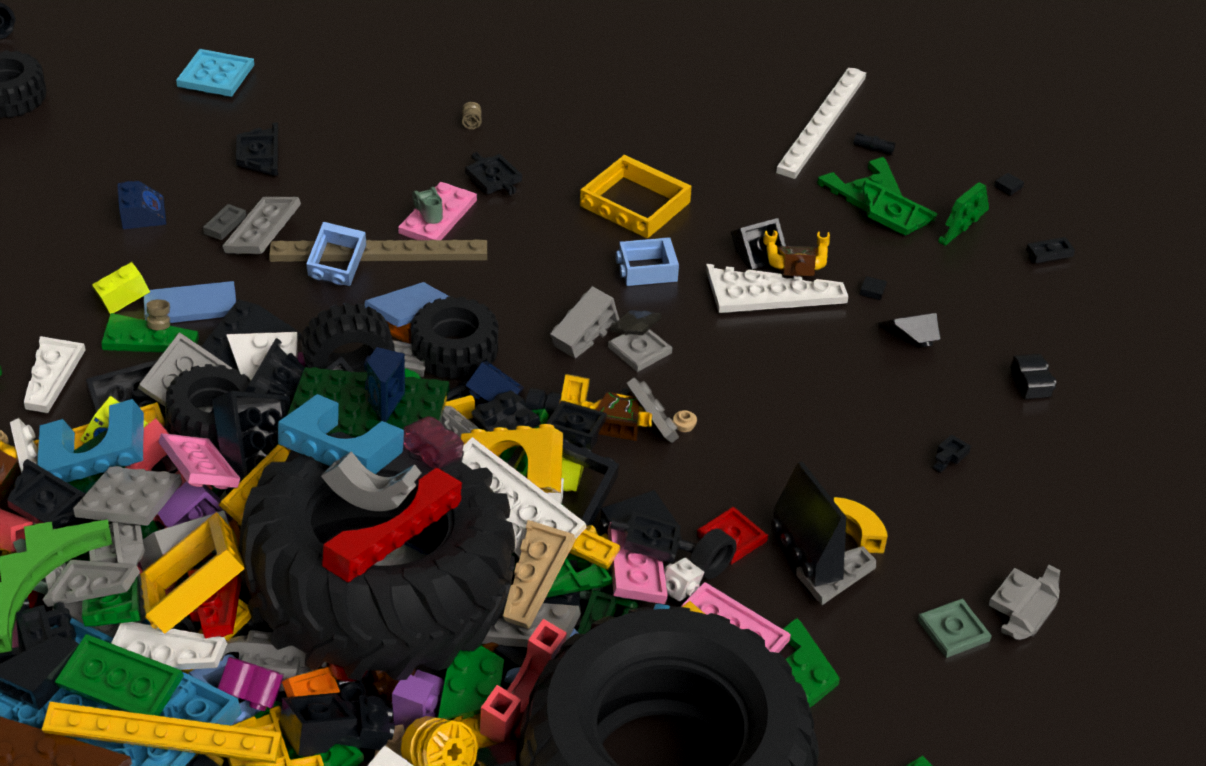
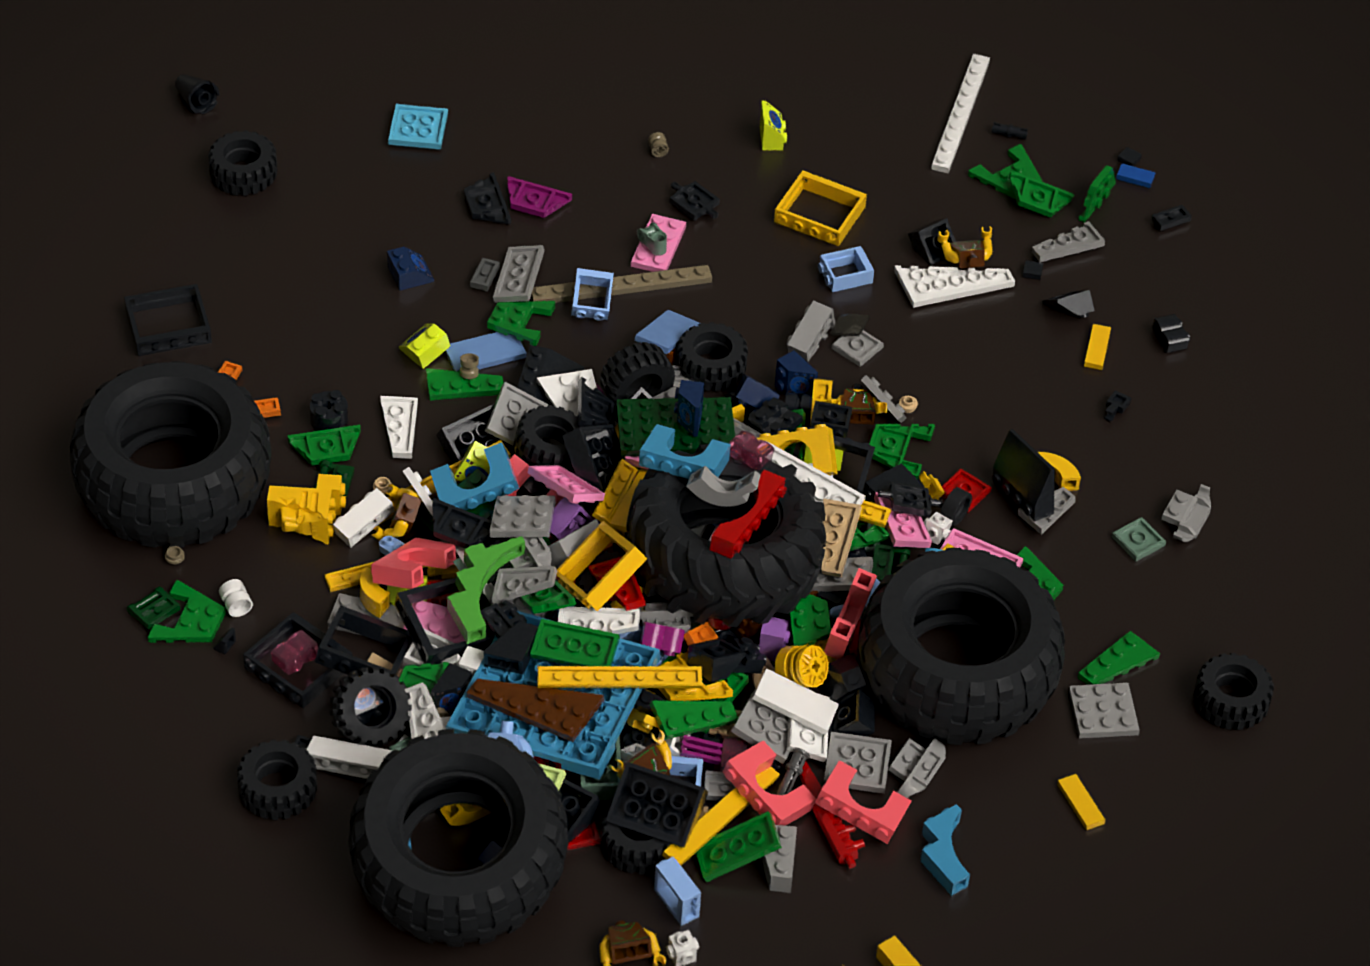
camera: 10 degrees left, 5 degrees up
(236, 269) = (514, 316): none -> green wing
(315, 153) = (535, 198): none -> magenta wing
(546, 367) = (794, 374): none -> dark blue slope
(603, 111) = (772, 128): none -> neon yellow slope
(651, 464) = (892, 443): none -> green wing
(690, 524) = (933, 485): none -> yellow plate
(926, 264) = (1066, 244): none -> light grey wing
(937, 382) = (1097, 347): none -> yellow tile
(1013, 203) = (1135, 175): none -> blue tile

